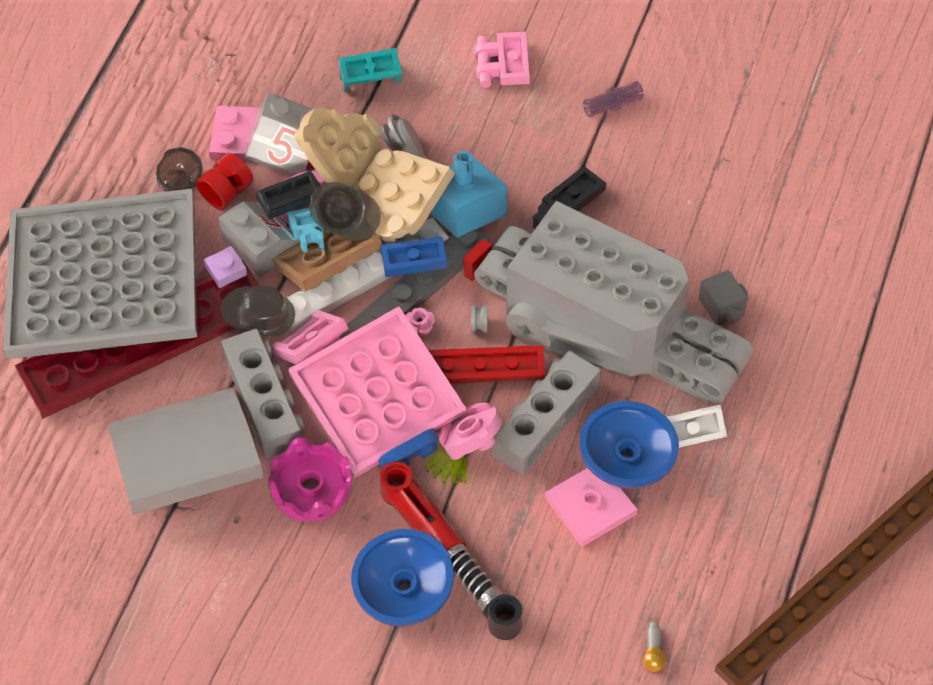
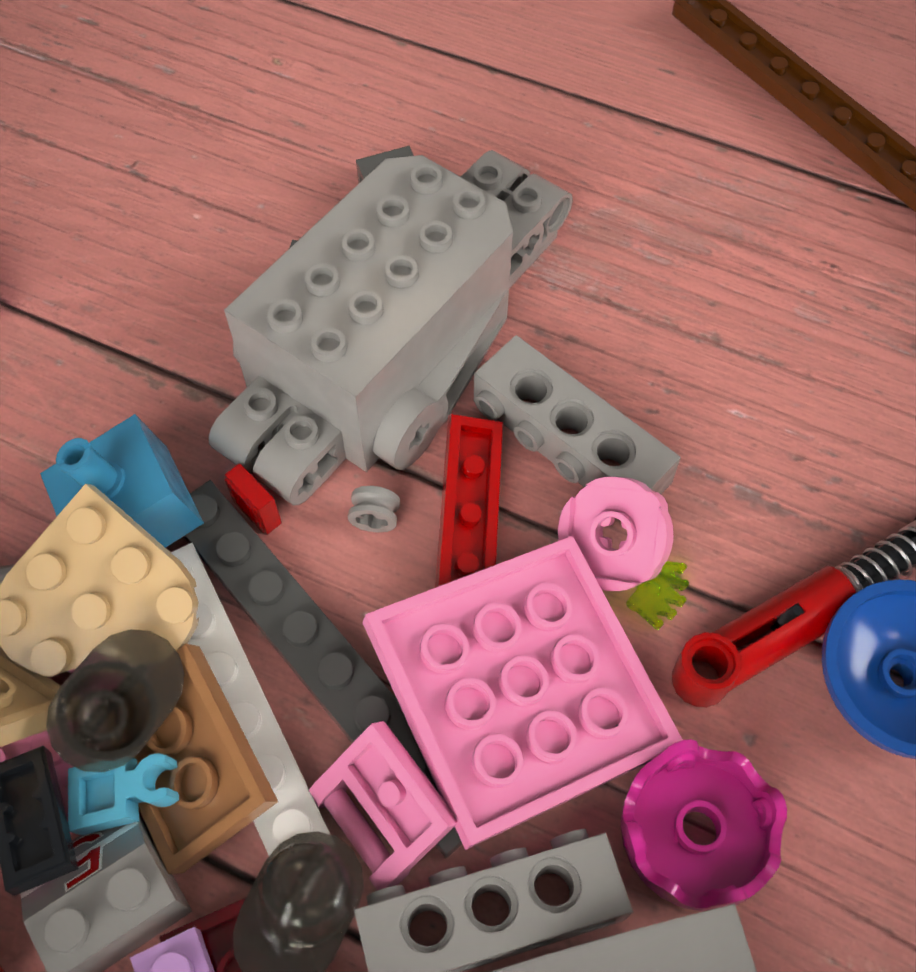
camera: 85 degrees left, 5 degrees up
(413, 256) = (237, 593): blue plate -> none
(421, 445) = (647, 640): blue plate -> none
(425, 326) = (354, 594): bright pink plate -> none
(573, 192) = (158, 358): black hinge -> none
(589, 506) = (731, 393): bright pink plate -> none
(629, 430) = (654, 299): blue dish -> none
(699, 425) = (597, 257): white slope -> none

